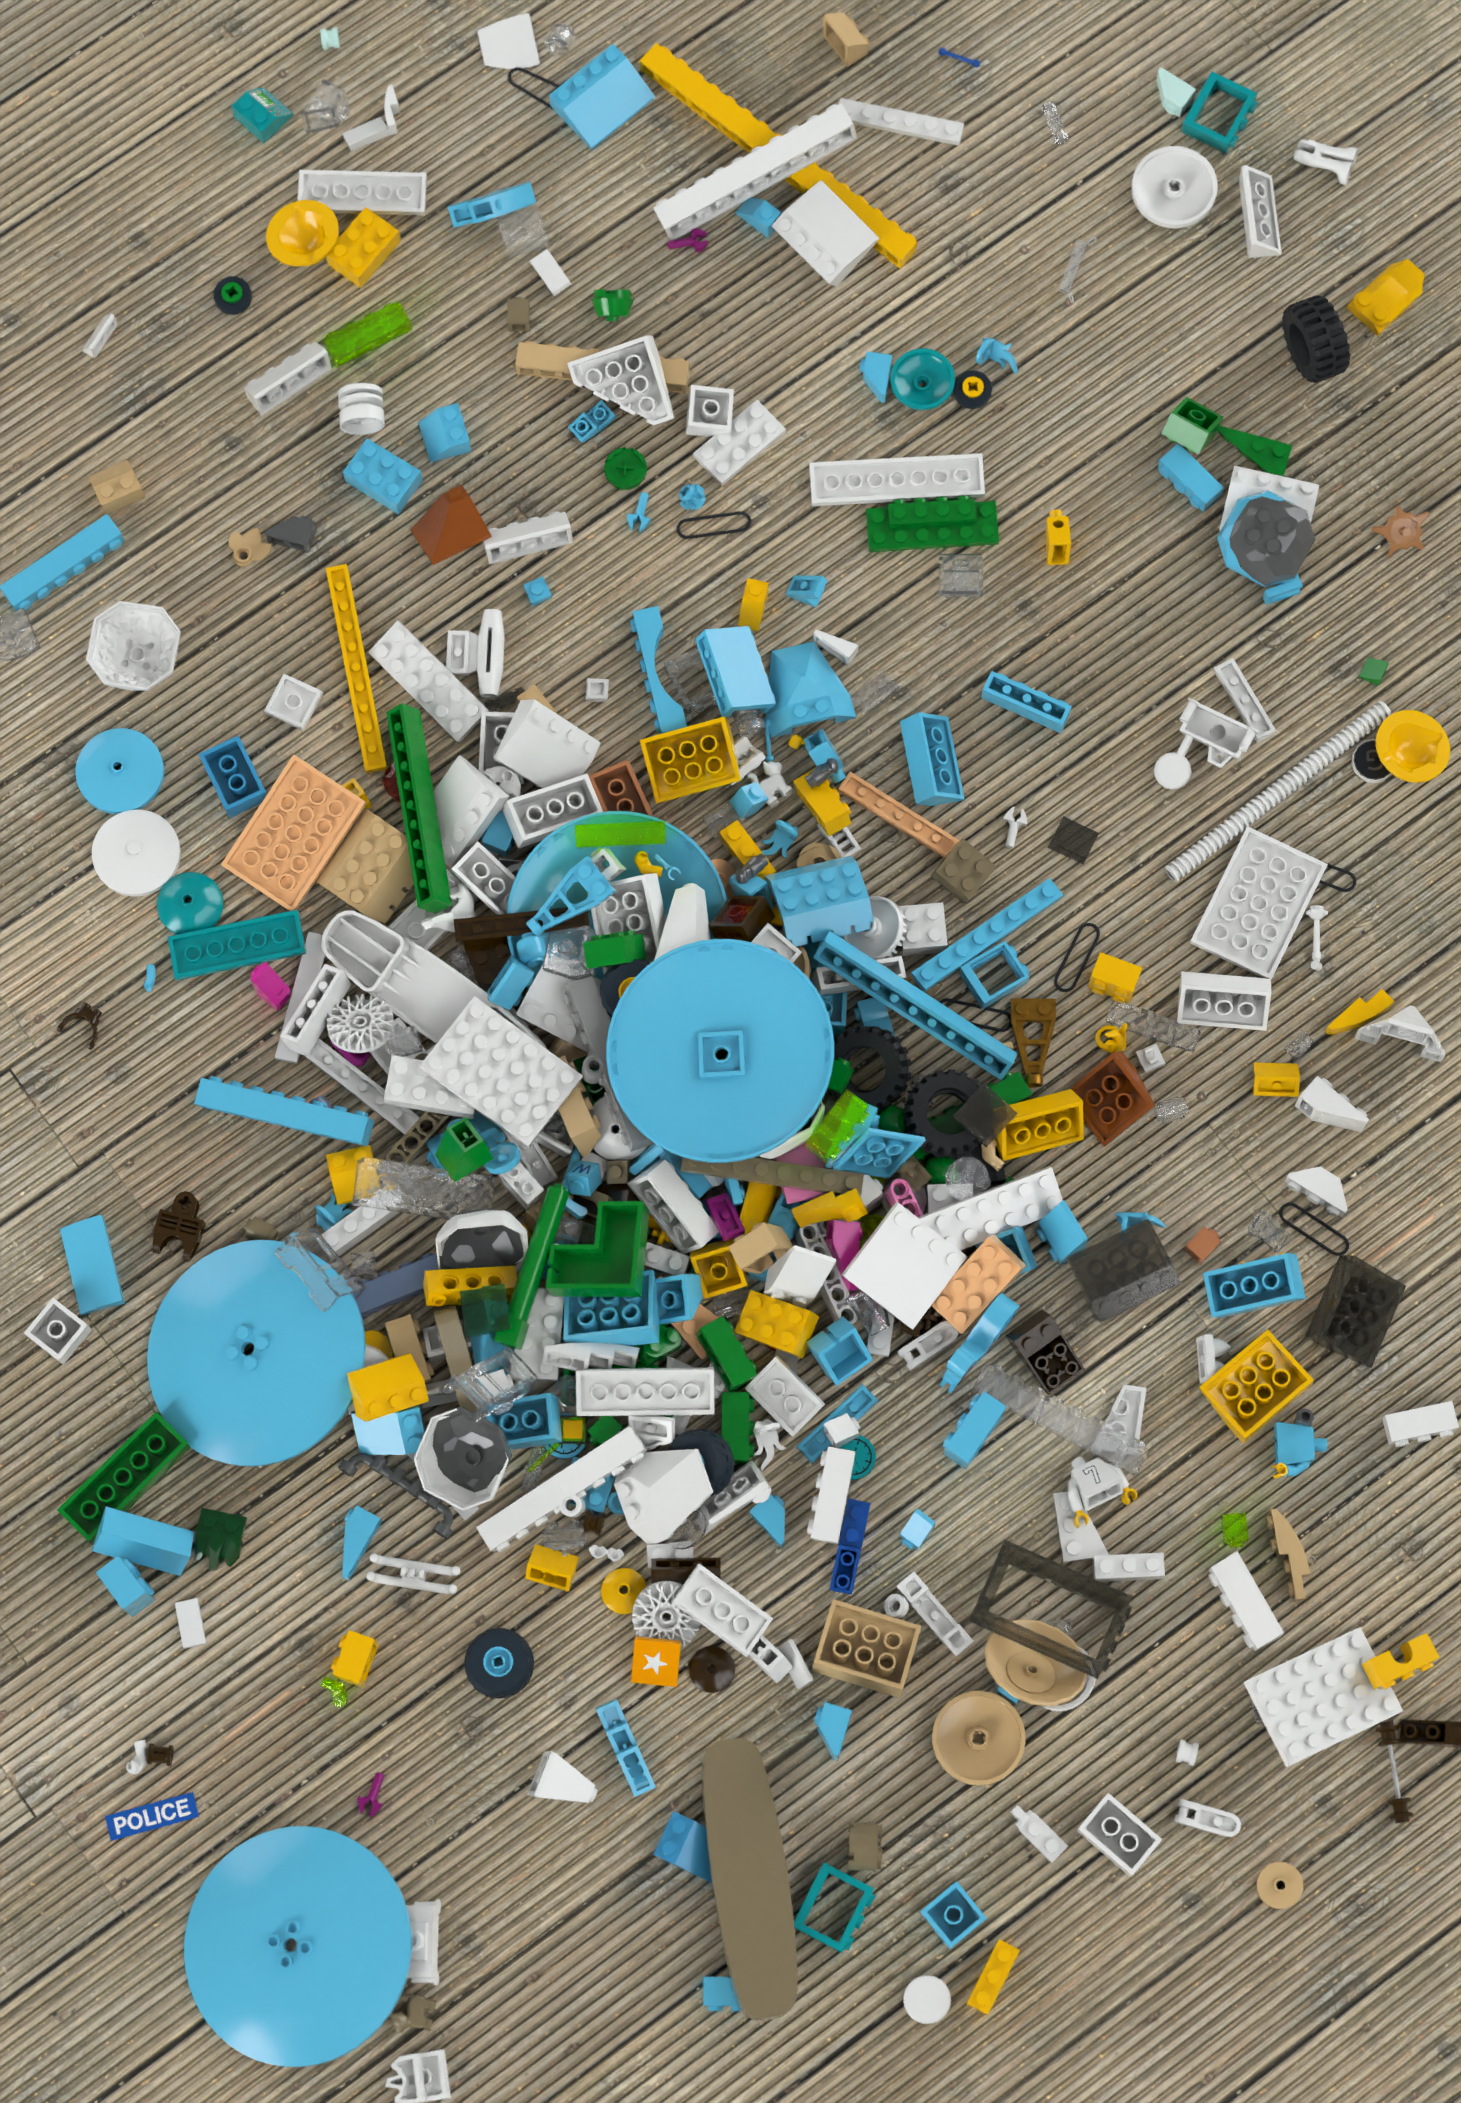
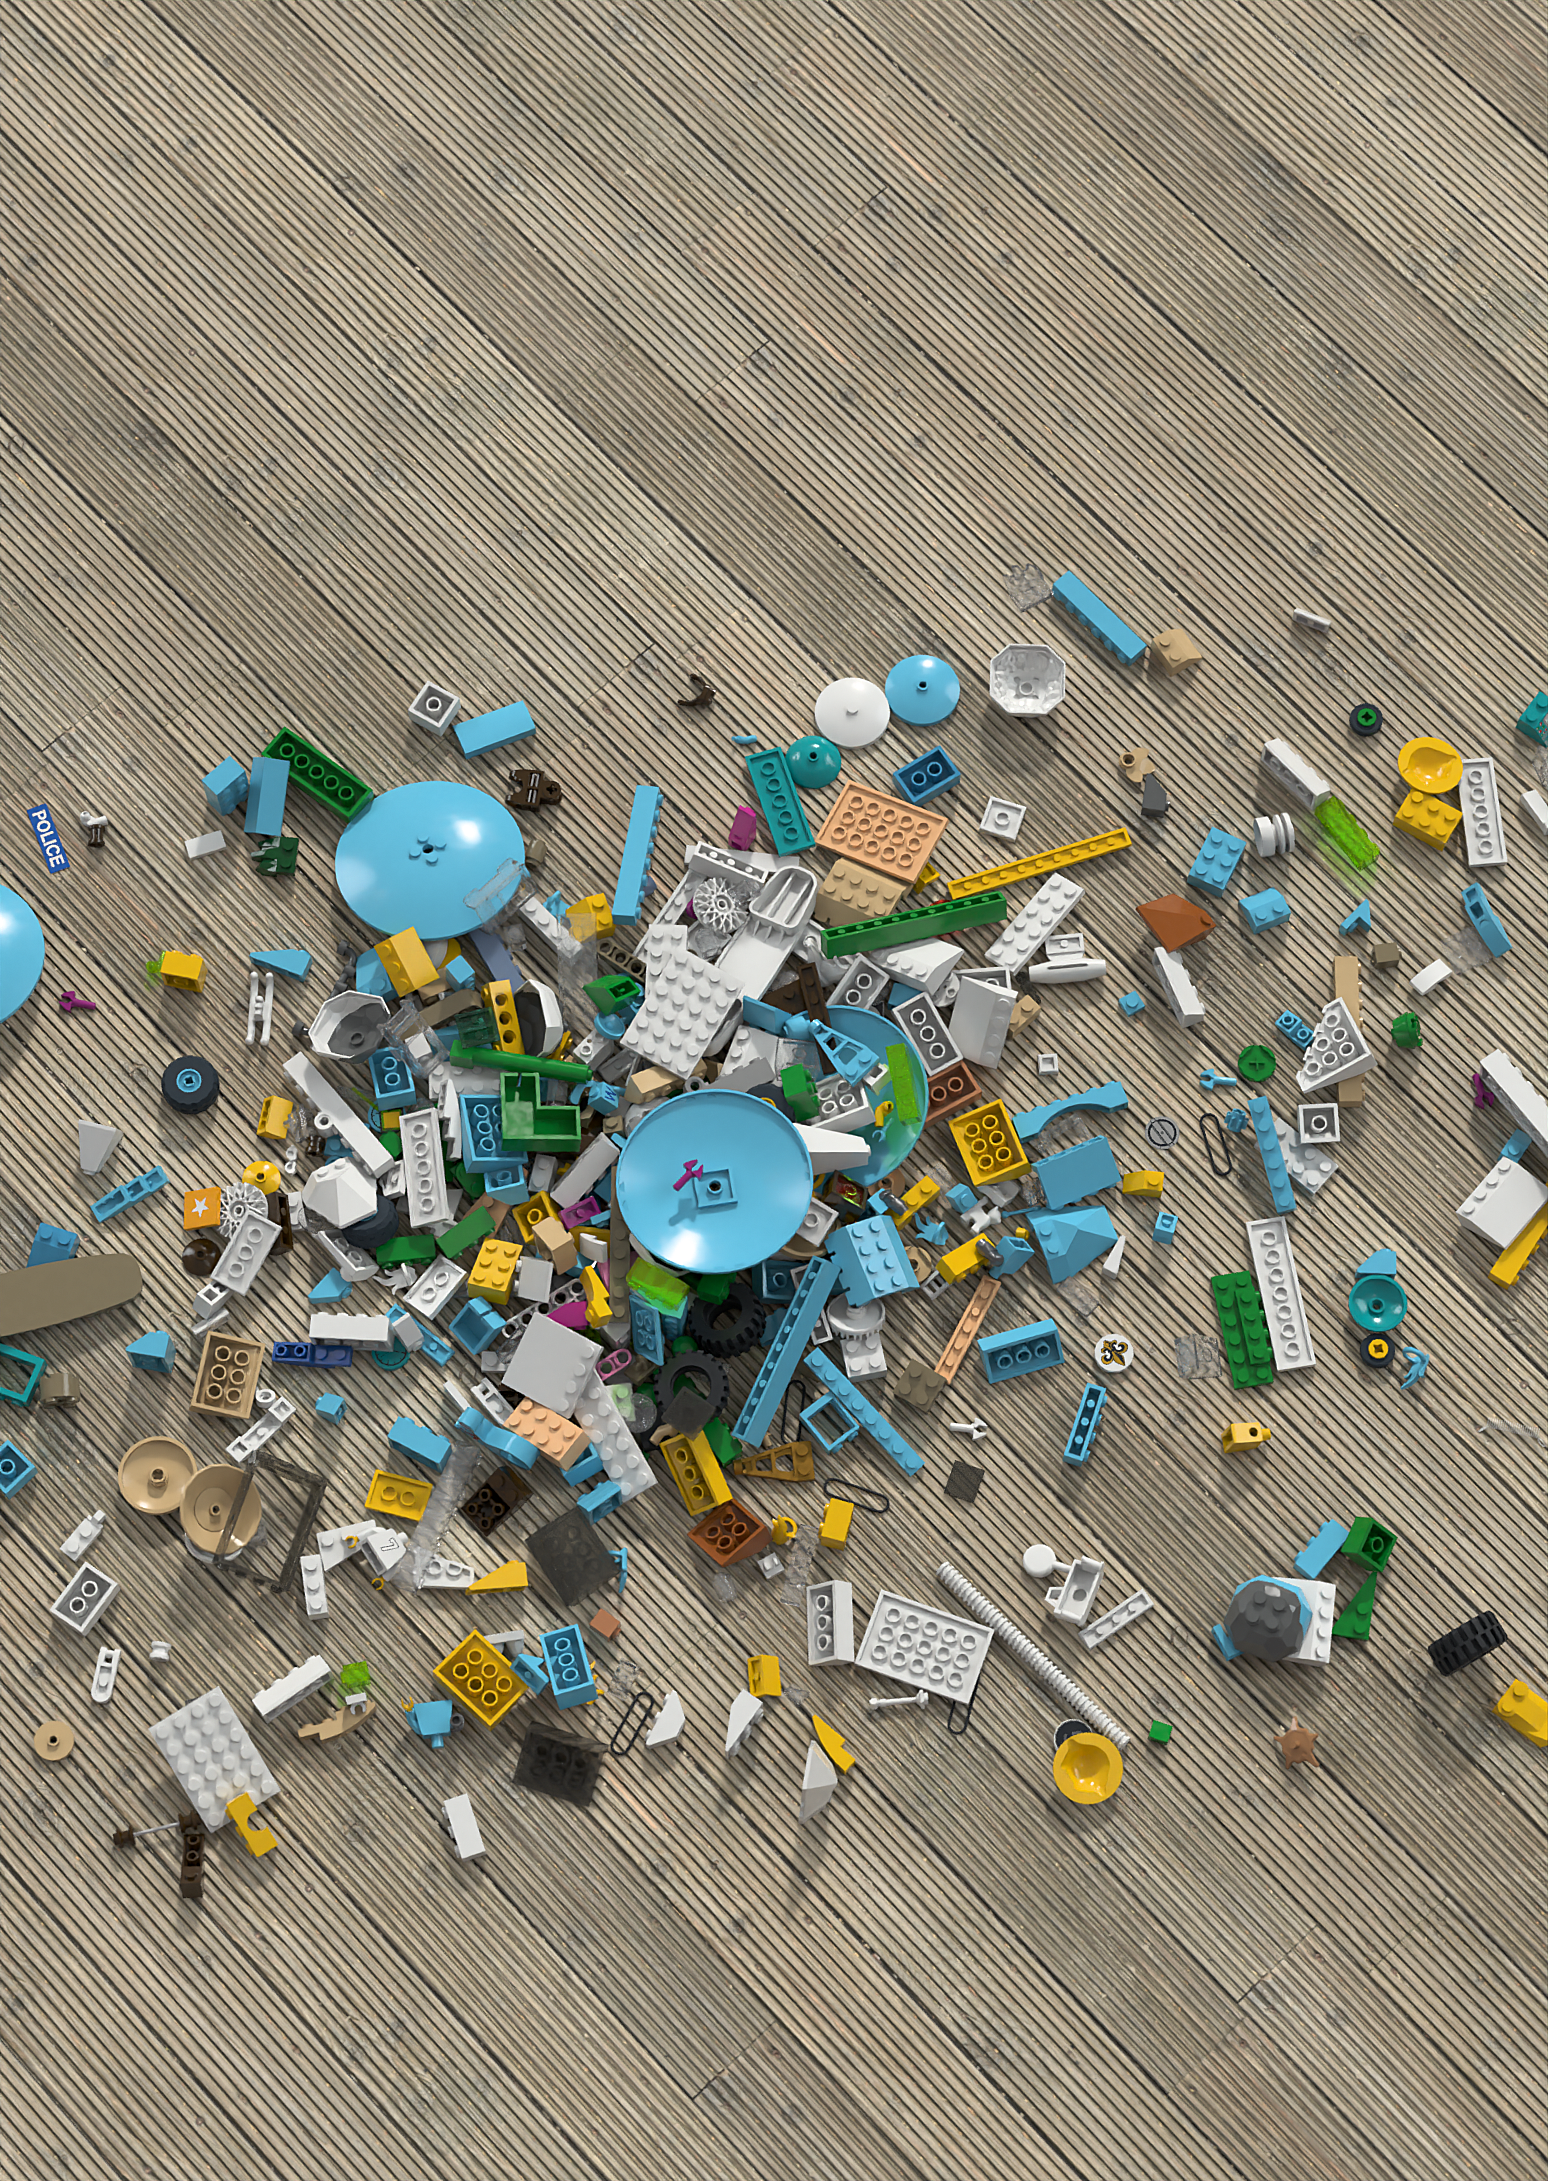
camera: 80 degrees right, 5 degrees down
(351, 991) = (744, 892): none -> clear brick
(417, 1323) = (460, 974): none -> medium azure brick
(469, 335) = (1360, 917): none -> medium azure slope
(693, 579) = (1162, 1132): none -> light grey sticker
(711, 1077) = (689, 1174): none -> magenta bar
(741, 462) = (1272, 1155): none -> medium azure brick
(771, 1206) = (593, 1248): none -> white slope
(922, 1383) = (456, 1396): none -> white tile
(944, 663) = (1113, 1353): none -> white tile
(1028, 1463) = (398, 1495): none -> yellow plate
(1140, 1353) = (504, 1579): none -> yellow slope
(1256, 1330) = (529, 1671): none -> medium azure slope
(1269, 1527) = (357, 1699): none -> white tile

